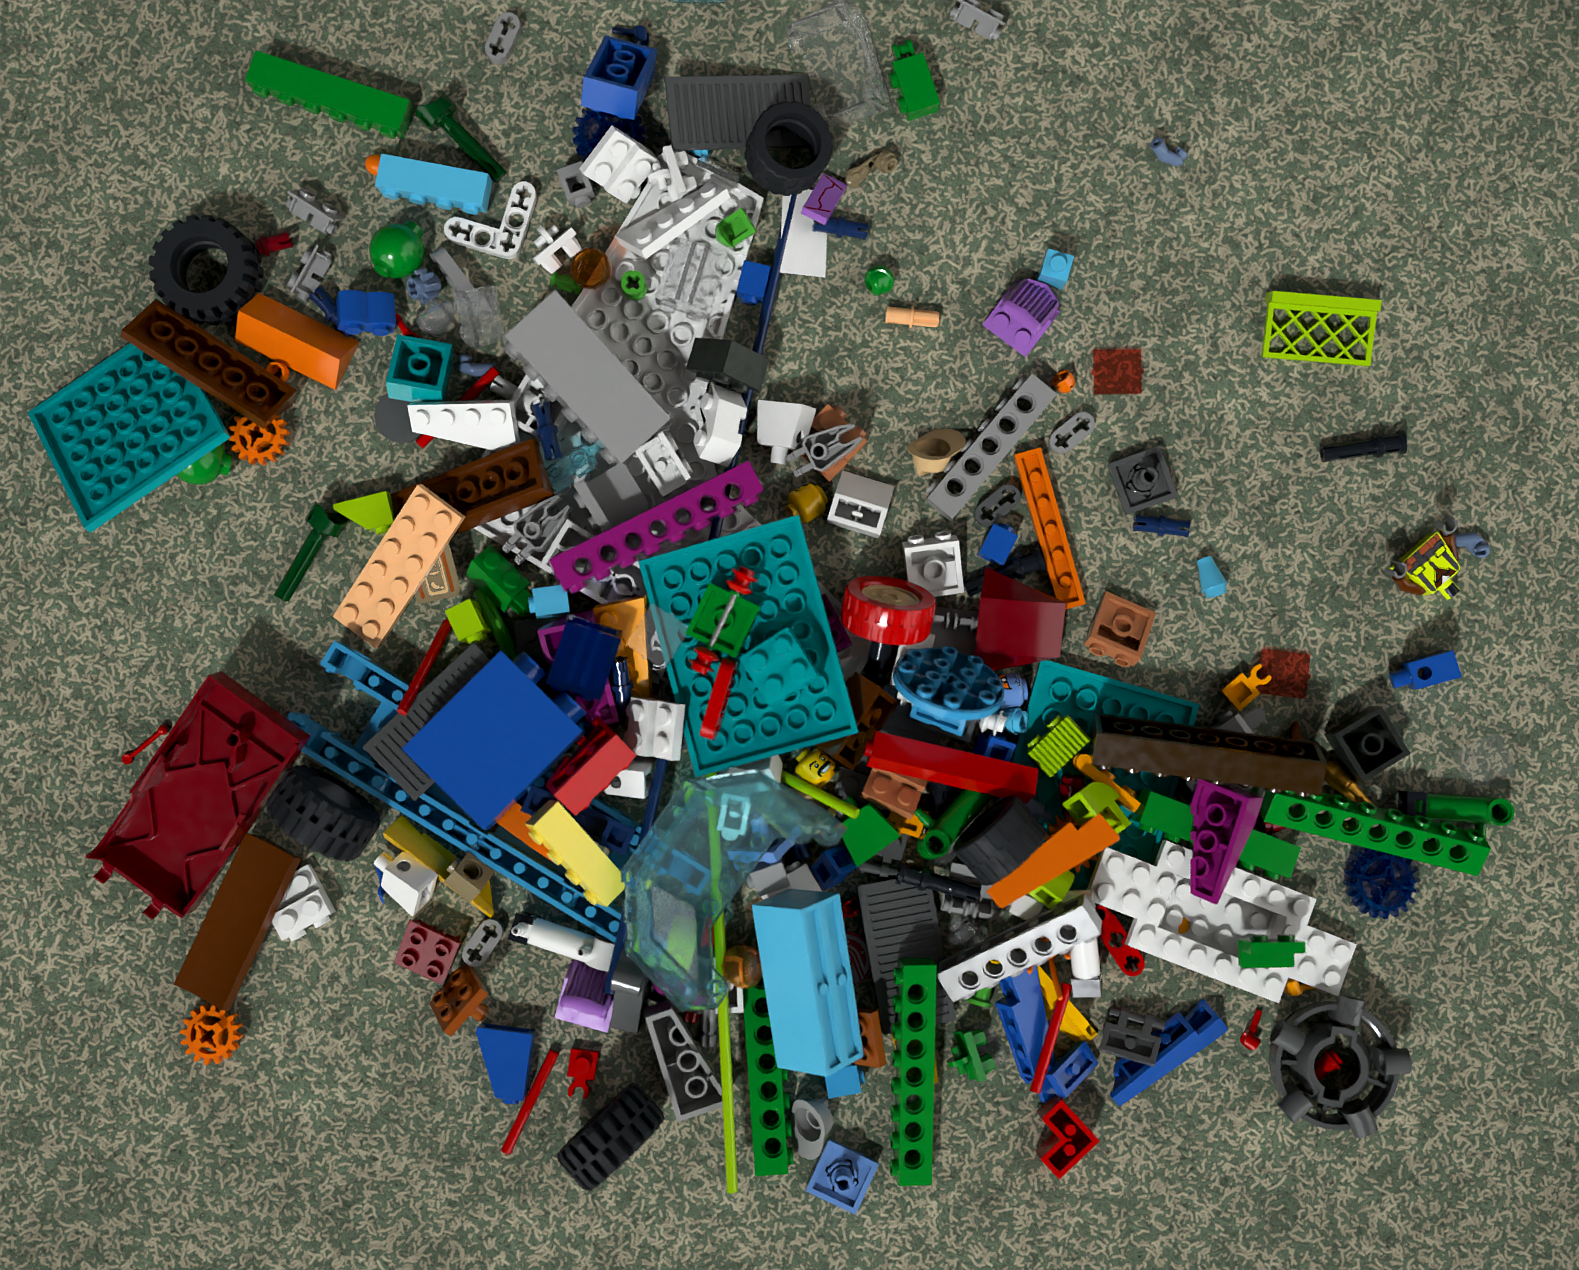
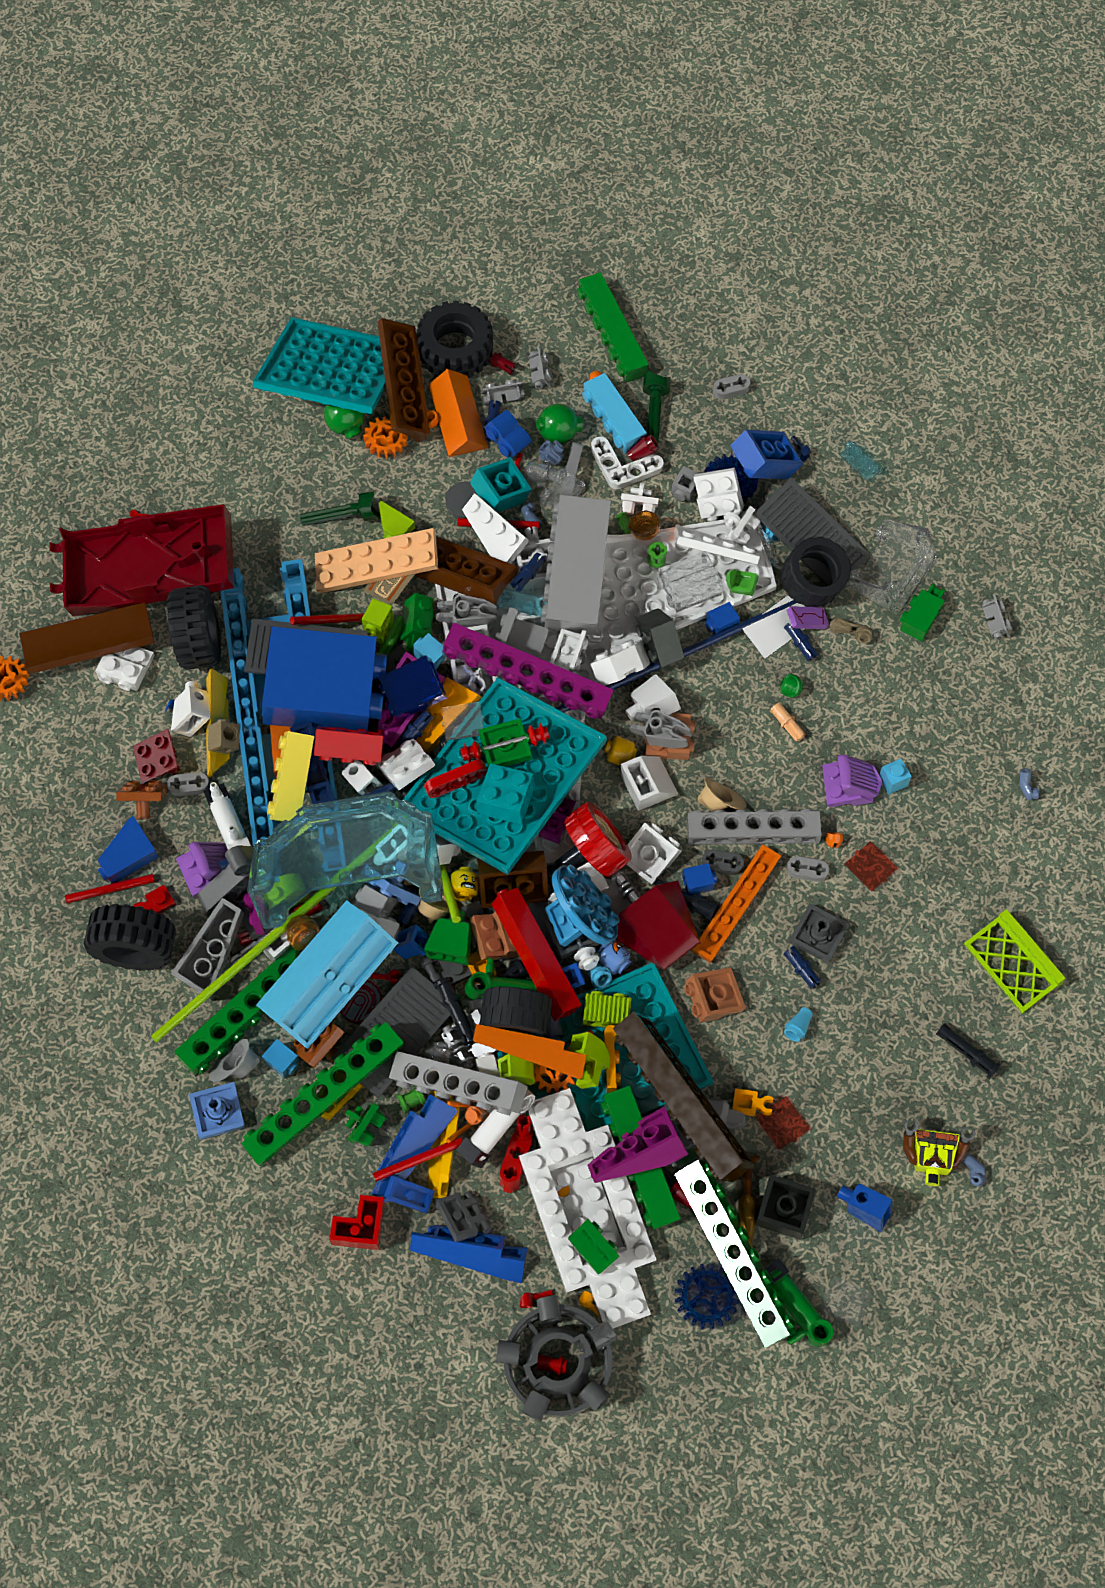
camera: 50 degrees right, 20 degrees down
(499, 190) = (644, 448): none -> dark red cone

